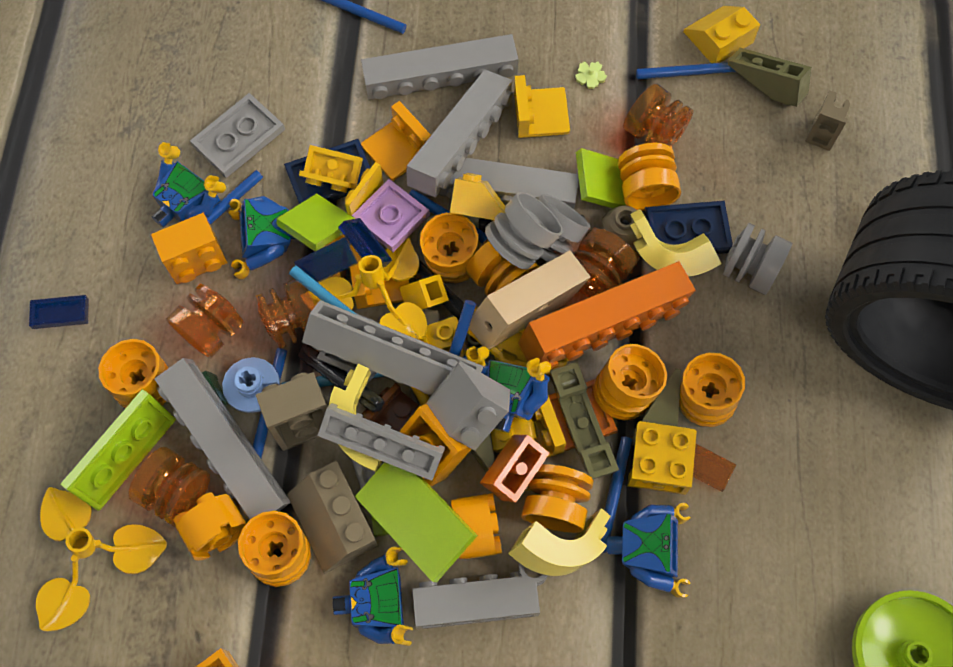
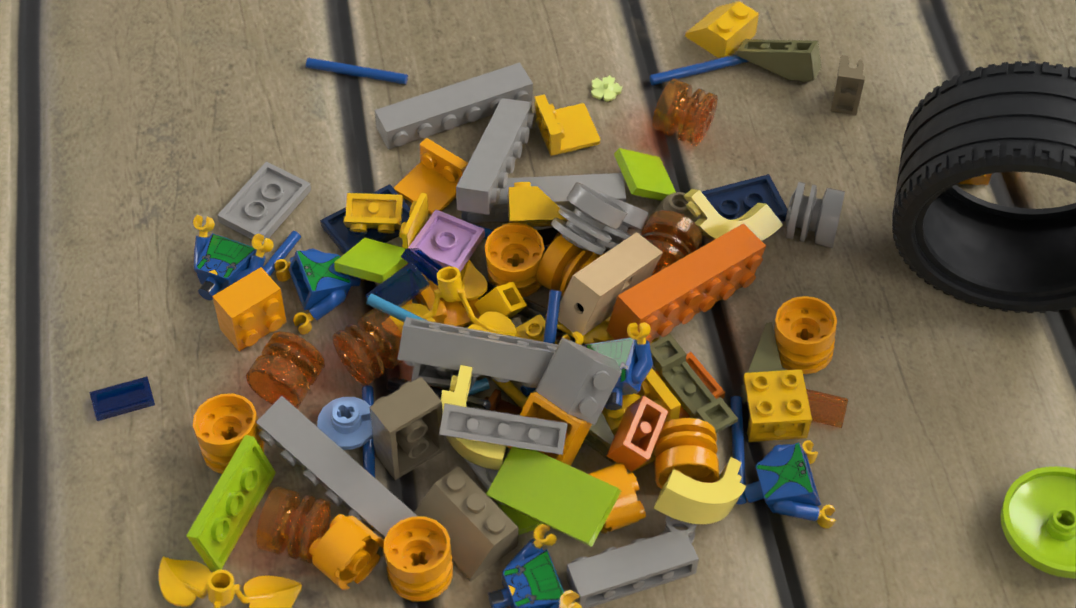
camera: 15 degrees left, 15 degrees down
(630, 381) = (725, 342): light orange wheel -> none
(649, 176) = (691, 161): light orange wheel -> none

